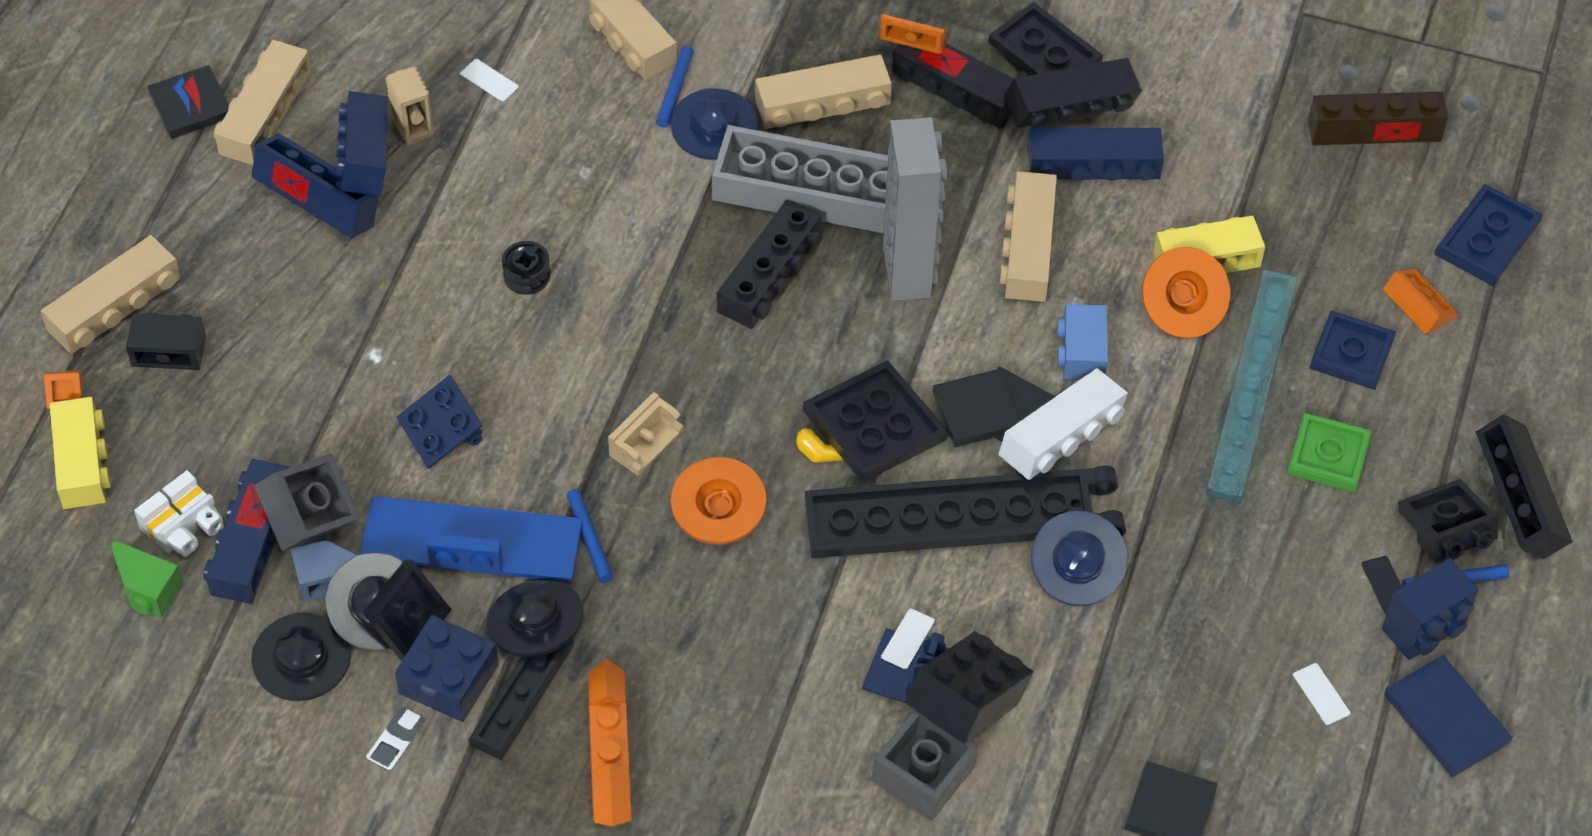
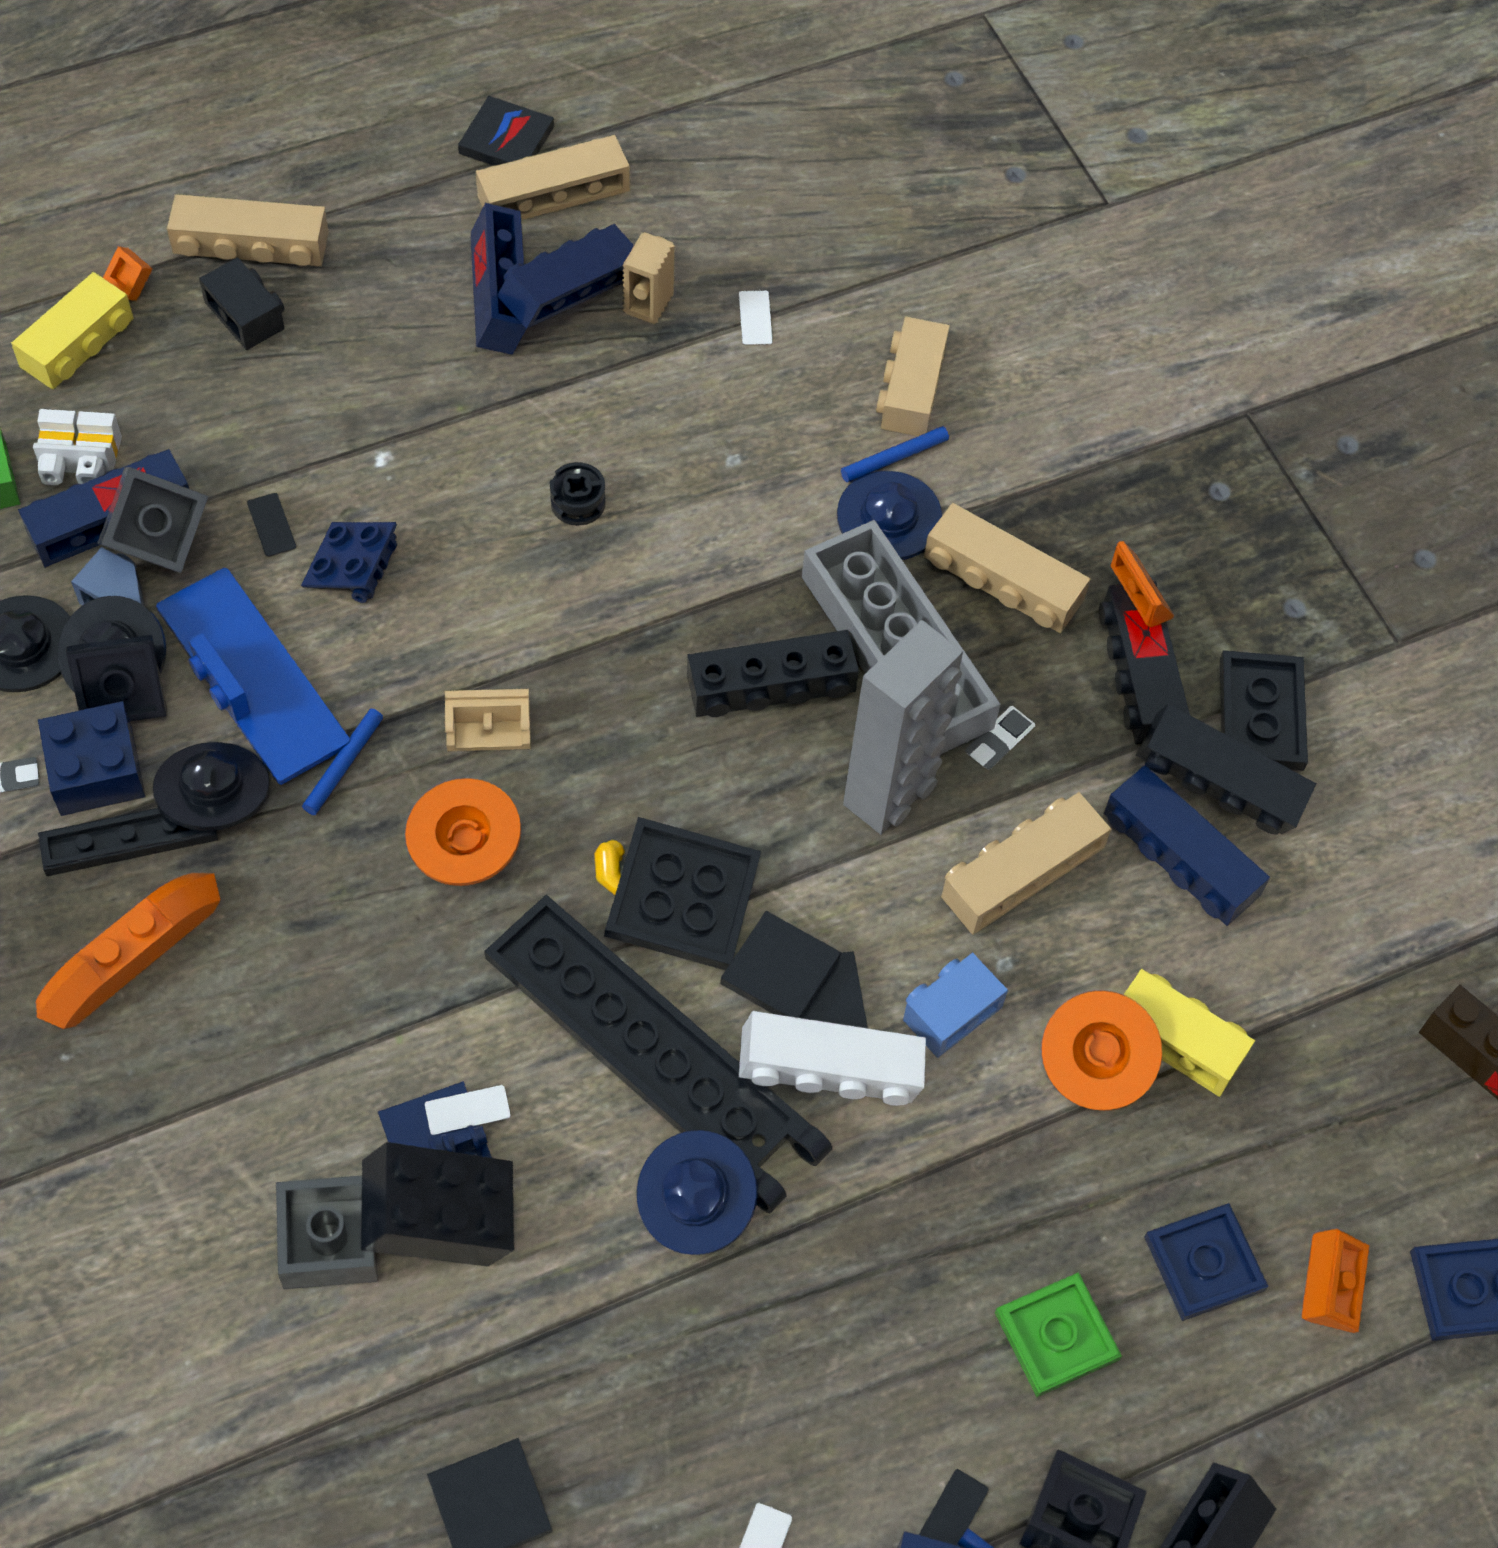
camera: 45 degrees right, 5 degrees up
(360, 451) = (271, 524): none -> black sticker
(1251, 387) = (1059, 1197): clear light blue plate -> none

